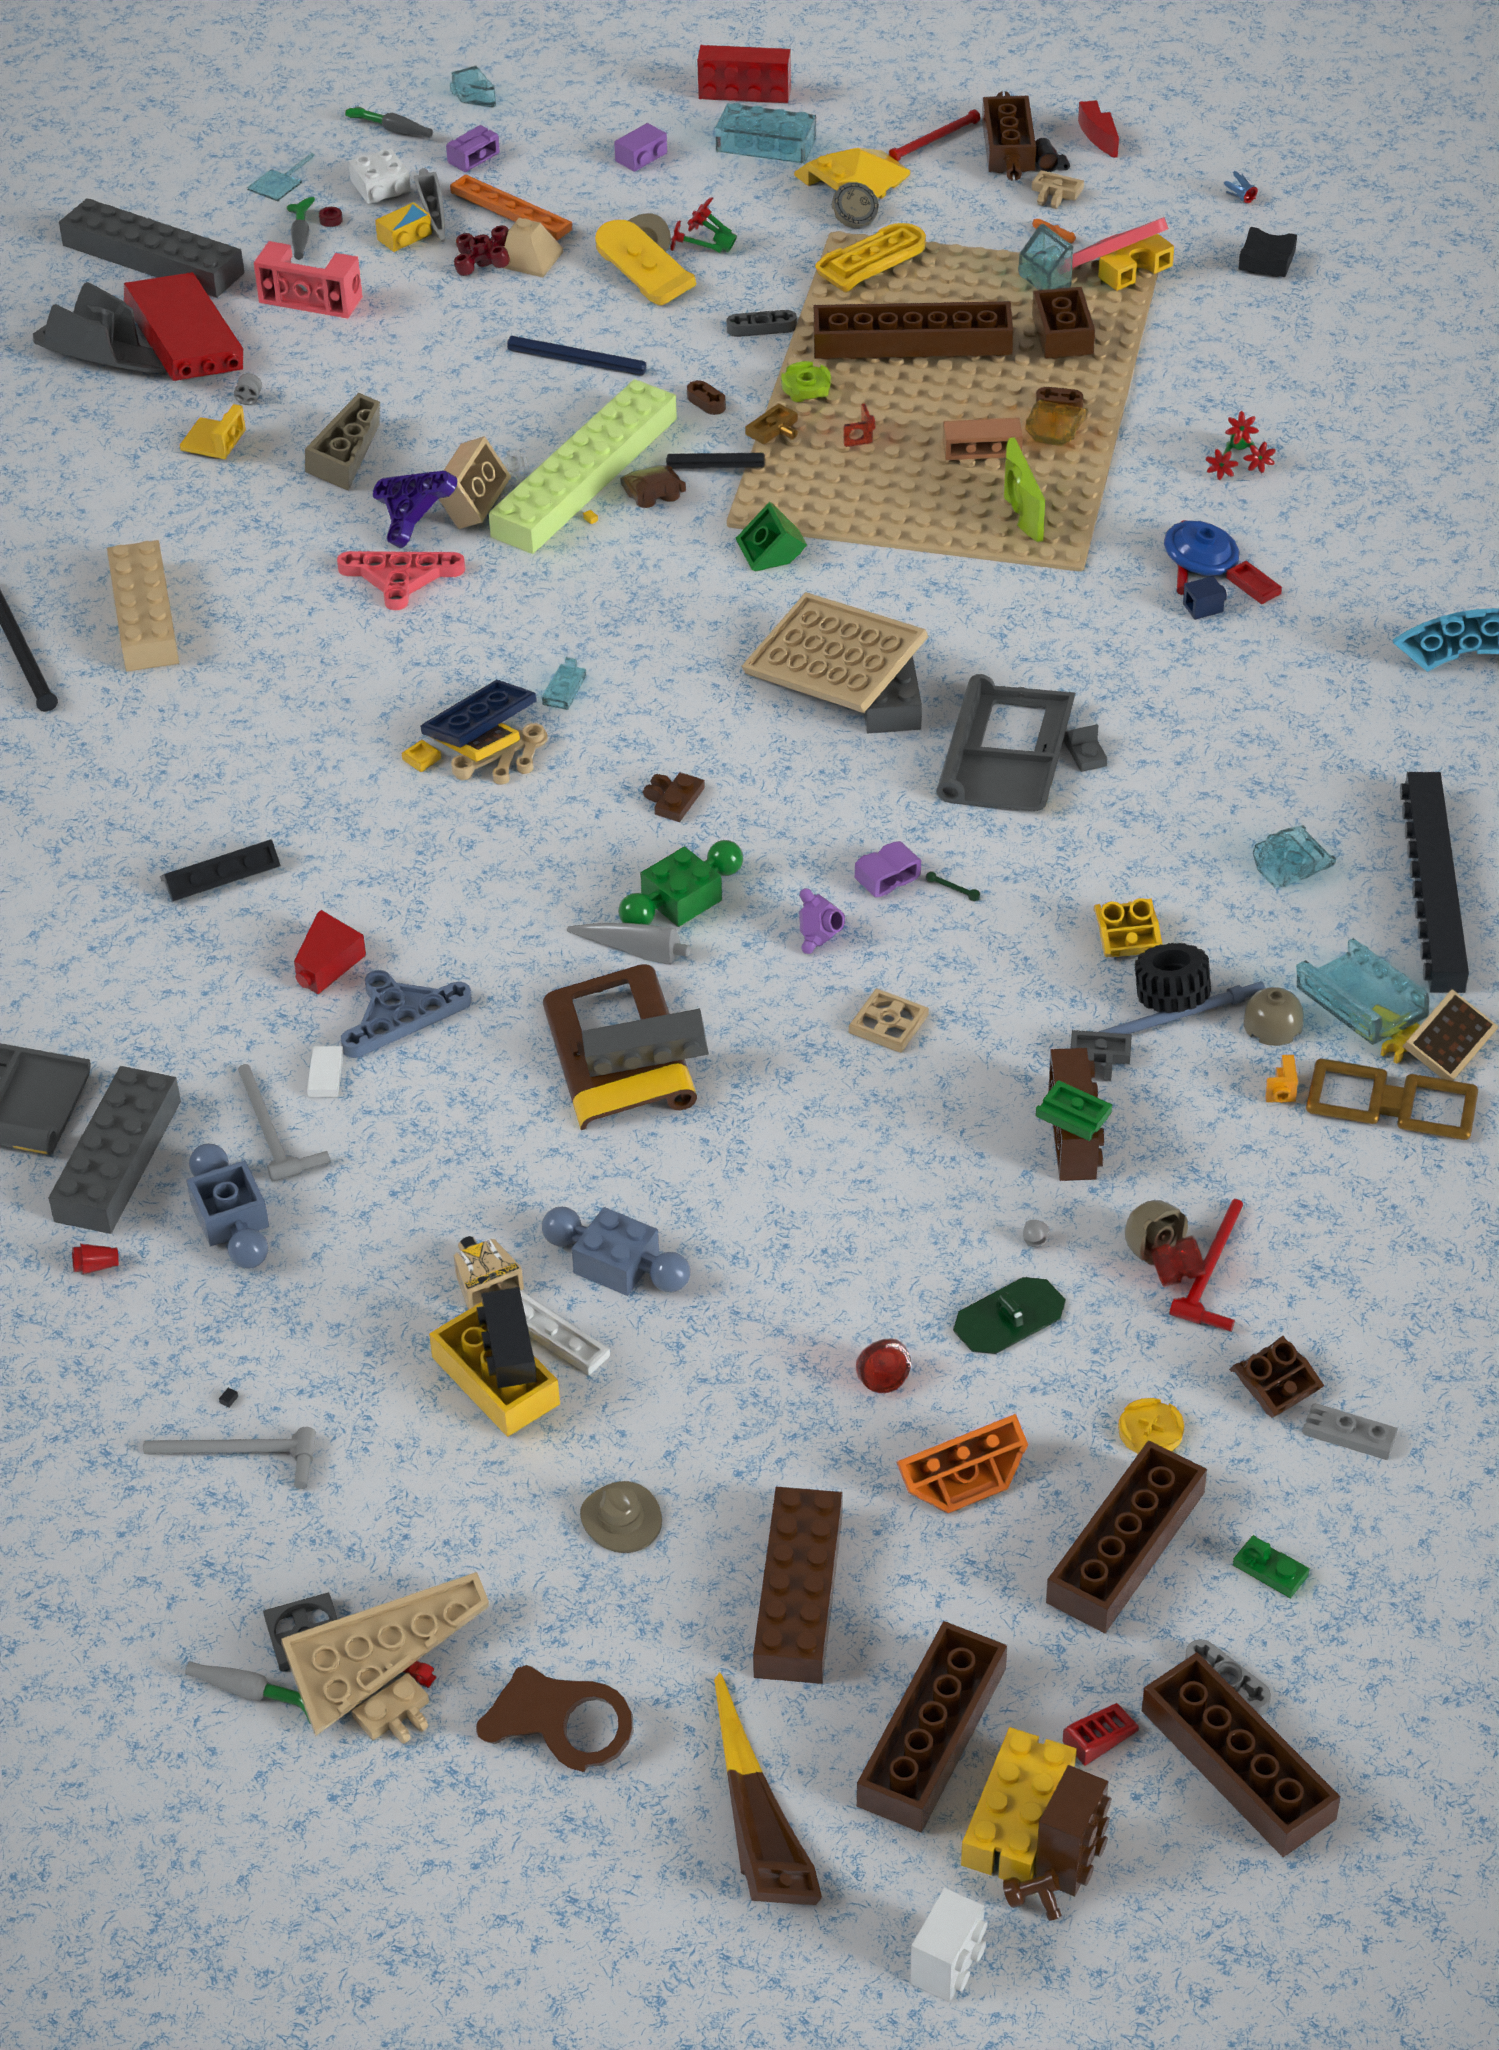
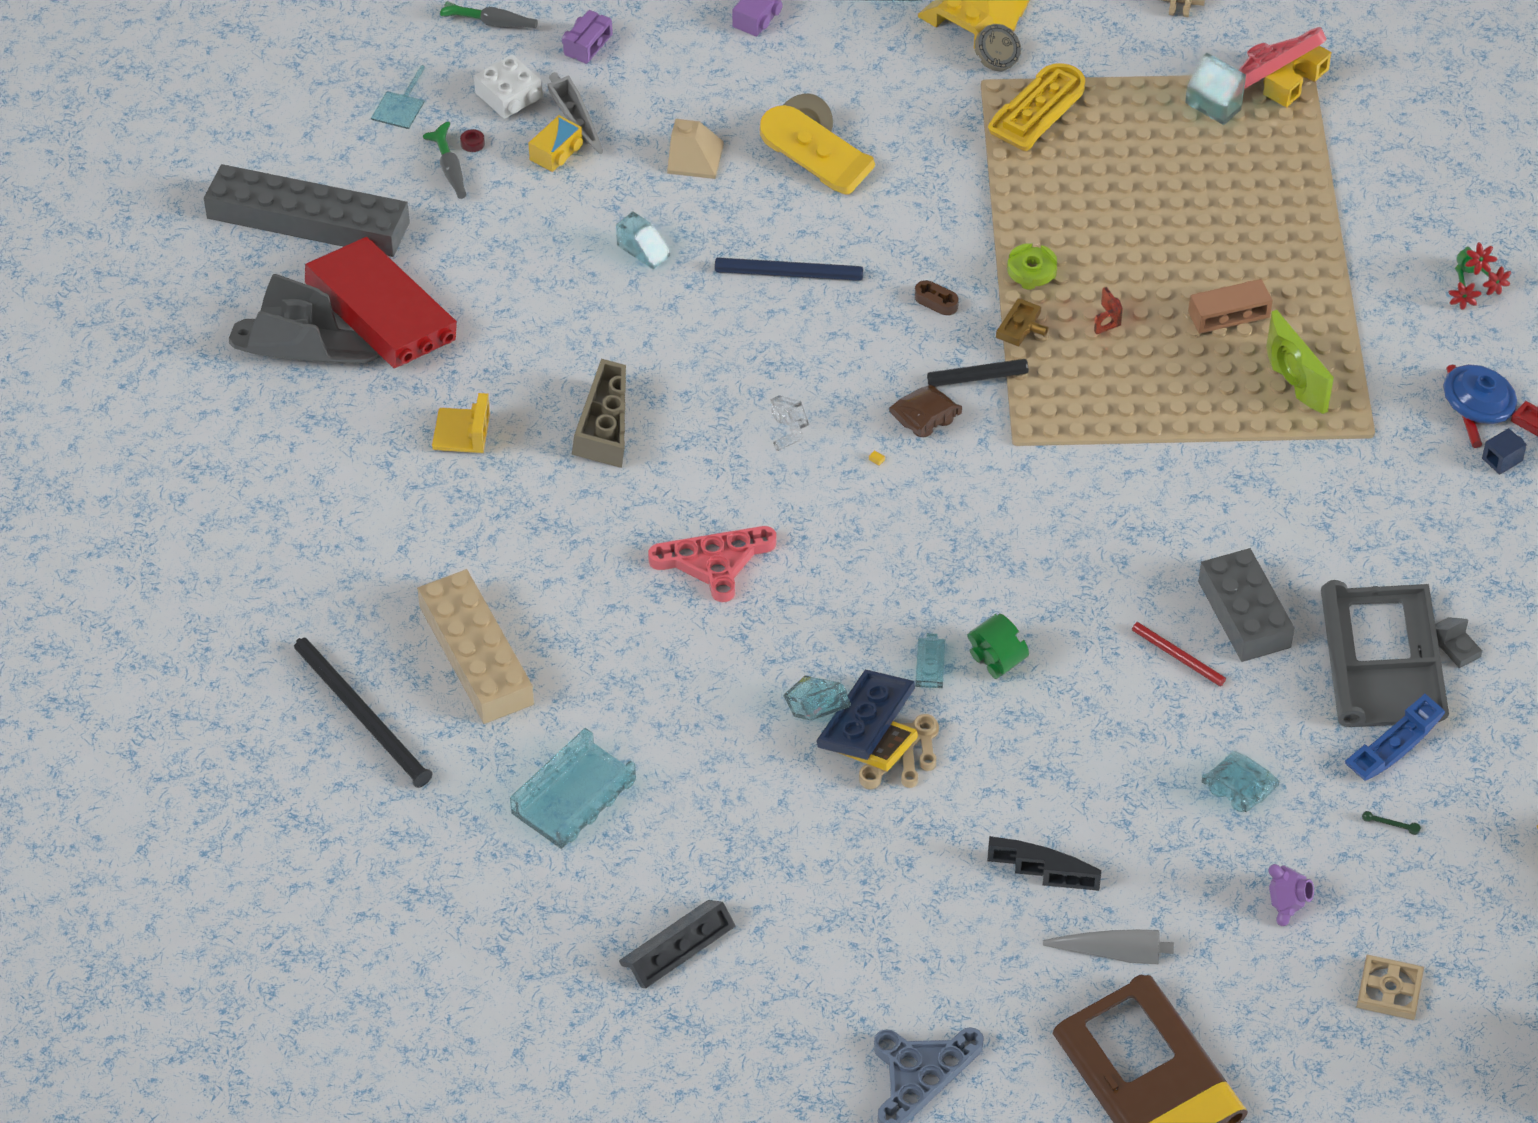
camera: 15 degrees left, 5 degrees up
(178, 731) = (571, 790): none -> clear light blue panel
(243, 393) = (475, 366): light grey wheel -> none
(327, 952) = (826, 1019): red slope -> none
(329, 290) = (512, 236): coral plate -> none
(410, 498) = (713, 476): dark purple beam -> none
(421, 755) = (822, 769): yellow tile -> none
(436, 692) = (816, 698): none -> clear light blue slope
(445, 311) = (641, 240): none -> clear light blue slope
(479, 484) = (754, 445): tan brick -> none
(481, 250) = (648, 160): dark red gear -> none
(508, 205) = (651, 100): orange plate -> none
(582, 466) = (850, 403): yellowish green brick -> none
(600, 864) = (1055, 867): none -> black slope
(628, 677) = (997, 645): none -> green brick
(645, 1042) = (1186, 1069): dark grey brick -> none
(674, 797) = (1092, 769): reddish brown hinge -> none
(682, 885) = (1140, 875): green brick -> none
(723, 236) = (882, 105): plant -> none
(770, 540) = (1067, 457): green slope -> none
(775, 322) = (973, 196): dark grey beam -> none
(807, 716) = (1179, 654): none -> red bar
(818, 827) = (1240, 781): none -> clear light blue slope
(835, 652) = (1191, 583): tan plate -> none
(887, 869) = (1325, 816): medium lavender brick -> none
(913, 330) = (1116, 190): reddish brown brick -> none
(987, 820) = (1398, 740): none -> blue slope
(1054, 422) = (1292, 275): clear yellow slope -> none
(1060, 396) = (1283, 246): reddish brown beam -> none
(1063, 322) = (1258, 158): reddish brown brick -> none
(1066, 235) = (1186, 41): orange piece -> none
(1267, 253) = (1414, 40): black brick -> none

